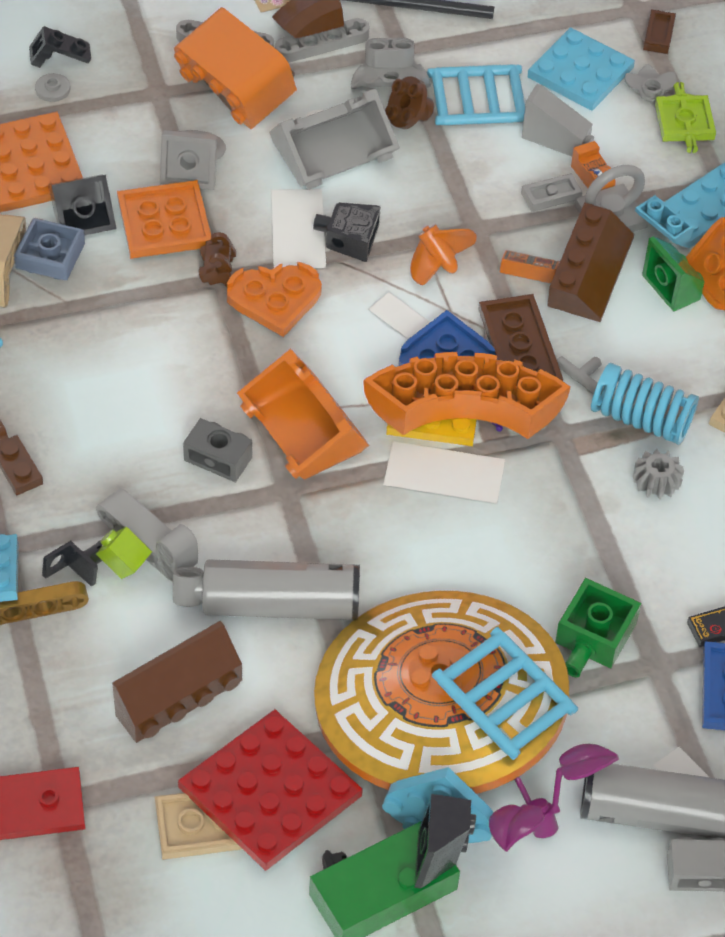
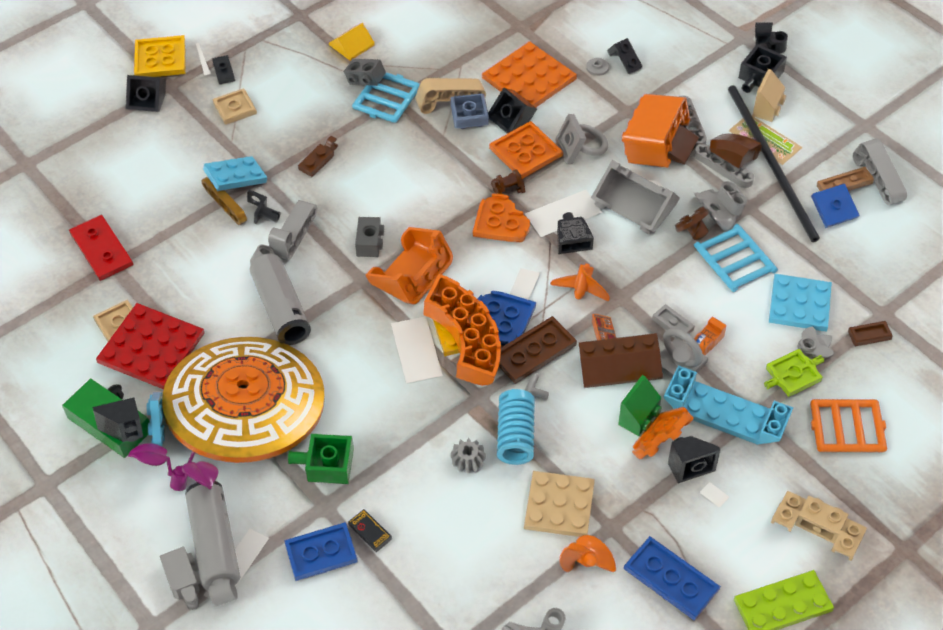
camera: 70 degrees right, 0 degrees up
(123, 552) = (271, 219): lime brick -> none
(177, 682) = (196, 277): reddish brown slope -> none
(490, 723) = (254, 436): medium azure bar -> none
(554, 123) = (729, 299): light grey slope -> none

